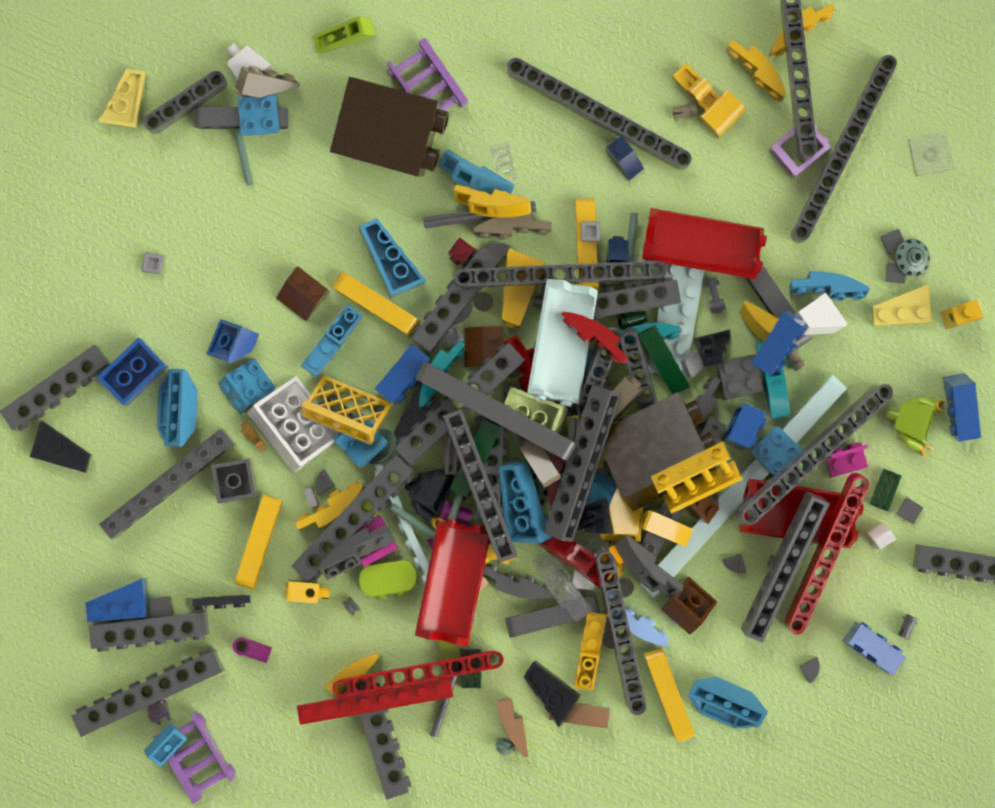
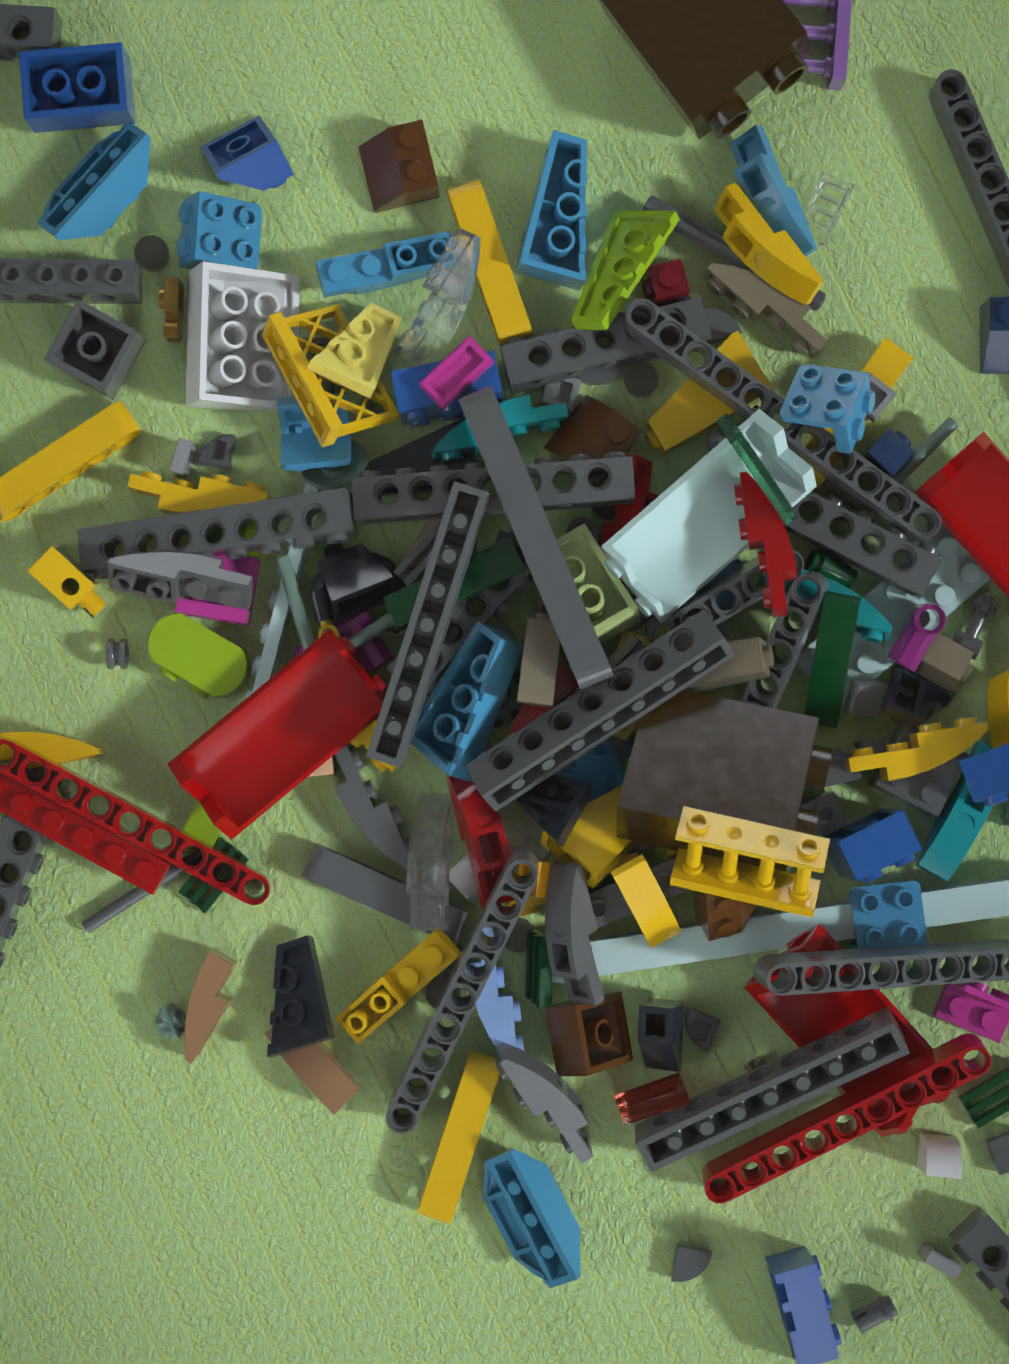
camera: 40 degrees right, 0 degrees up
(223, 418) = (152, 253): none -> clear smoke tile
(353, 391) = (359, 351): none -> light yellow wing
(373, 341) = (450, 288): none -> clear slope
(404, 366) = (456, 373): none -> dark pink tile
(434, 258) = (621, 261): none -> lime wing
(567, 307) = (757, 468): none -> clear green tile
(574, 251) = (830, 400): none -> dark azure bracket
(645, 595) = (538, 970): none -> dark green tile
(689, 645) = (548, 1094): none -> slope
(693, 322) = (916, 640): none -> magenta piece
(714, 321) = (946, 663): none -> dark tan brick
(720, 580) = (661, 1033): none -> black slope
(736, 365) = (929, 749): none -> yellow slope
(738, 611) = (651, 1099): none -> clear red tile
(915, 581) = (939, 1260): none -> light grey tile

